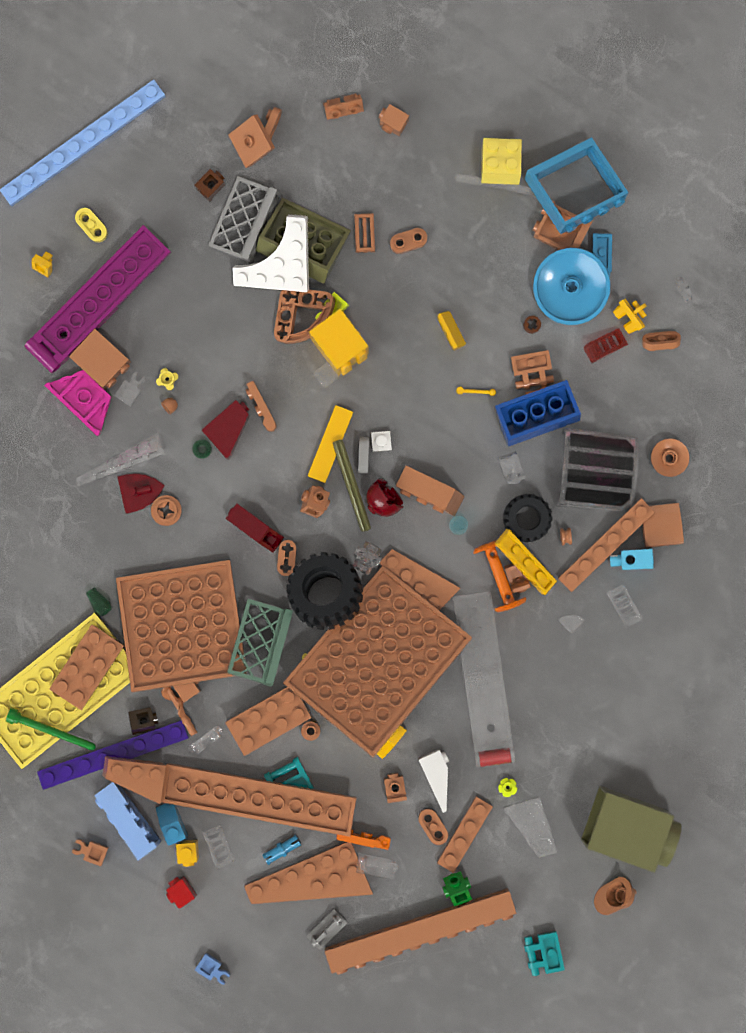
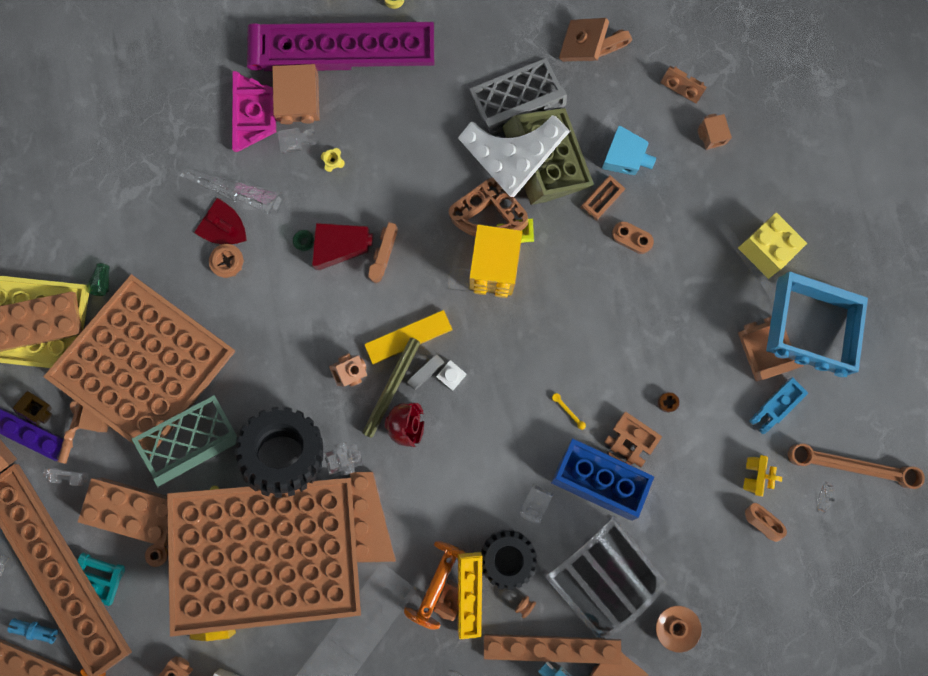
camera: 45 degrees right, 5 degrees down
(169, 405) = (314, 181): nougat hinge -> none
(203, 183) = (517, 36): reddish brown brick -> none
(254, 528) = (279, 344): dark red slope -> none
(291, 559) = (278, 389): nougat beam -> none
(352, 189) = (627, 153): none -> medium azure torso
(429, 491) = (448, 455): nougat wedge -> none
(451, 330) = (597, 342): yellow slope -> none
(458, 525) = (446, 507): clear light blue plate -> none
(571, 286) = (733, 403): dark azure dish -> none
(594, 350) = (699, 476): clear red slope -> none
(684, 251) = (857, 466): none -> nougat piece

